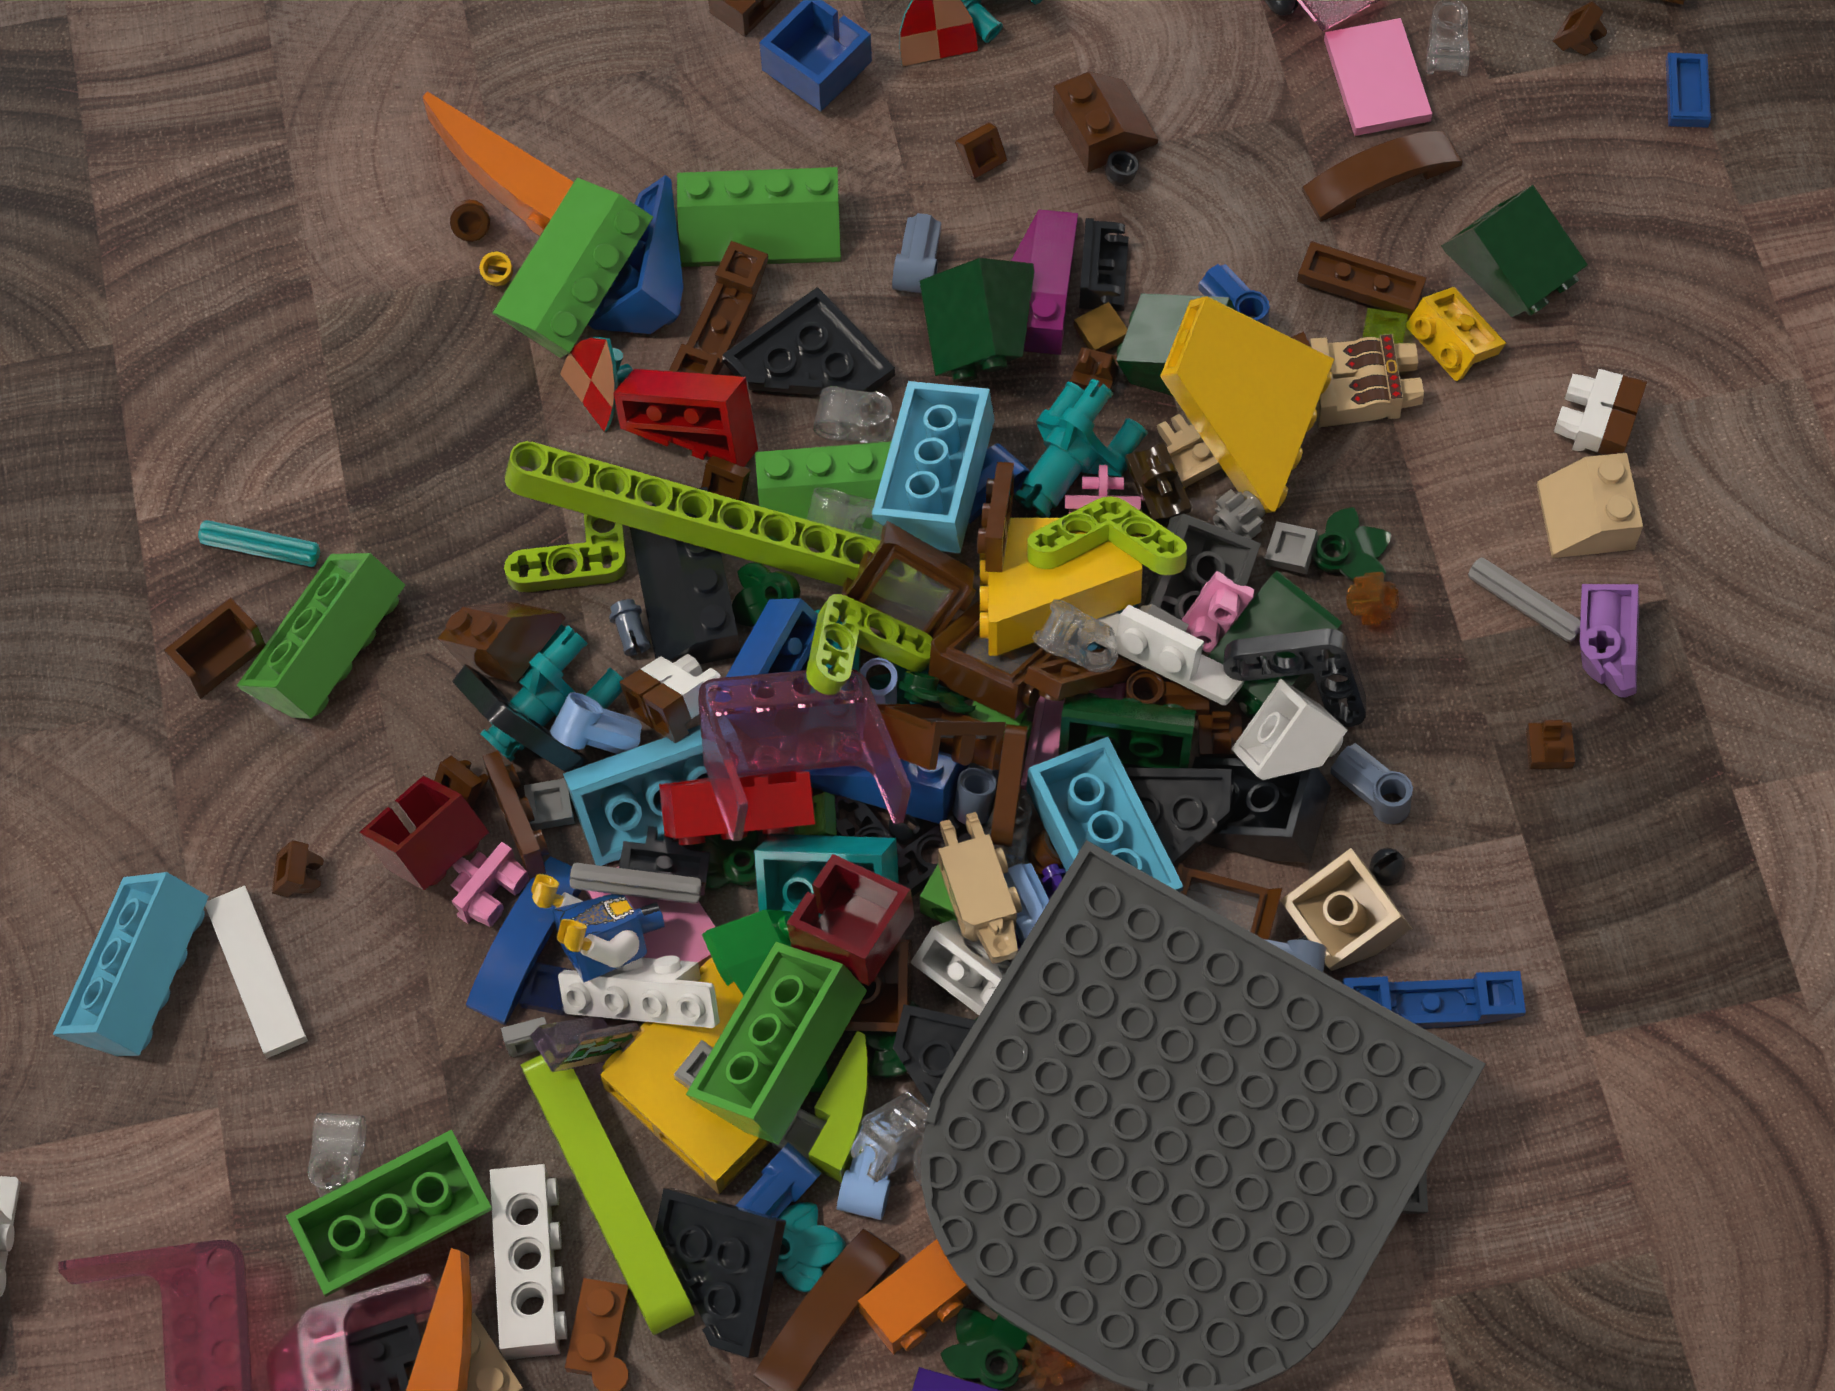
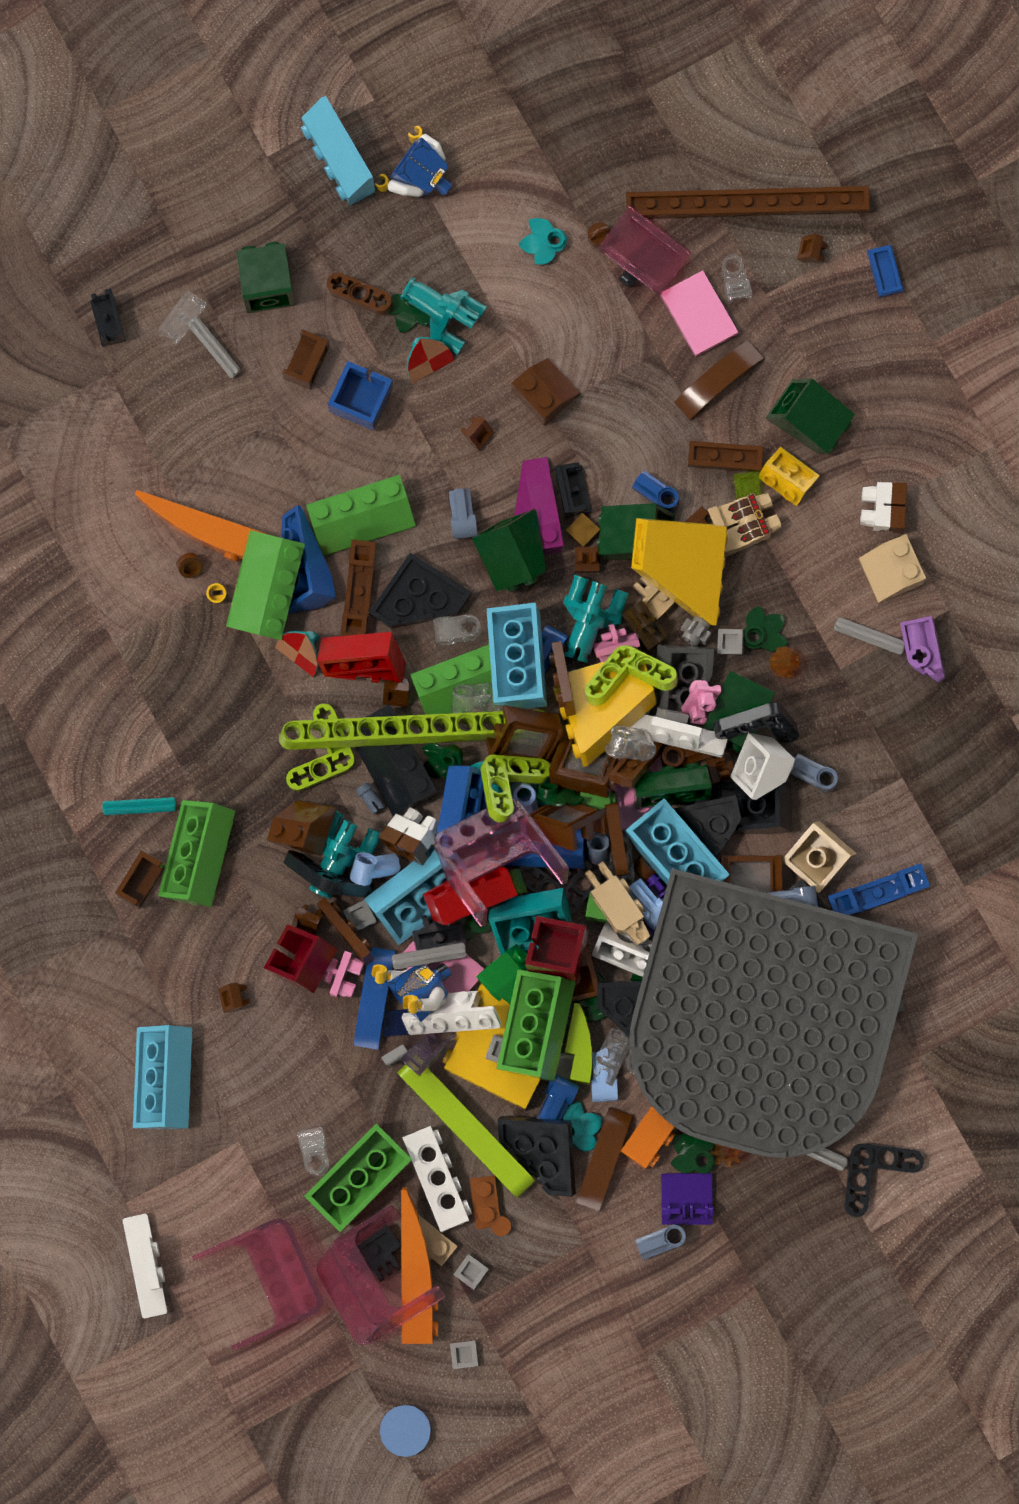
camera: 15 degrees left, 15 degrees up
(255, 972) = (231, 1060): white tile -> none
(1125, 168) = (565, 417): black hinge -> none
(1391, 873) = (837, 823): black hinge -> none
(1550, 745) = (905, 721): reddish brown tile -> none

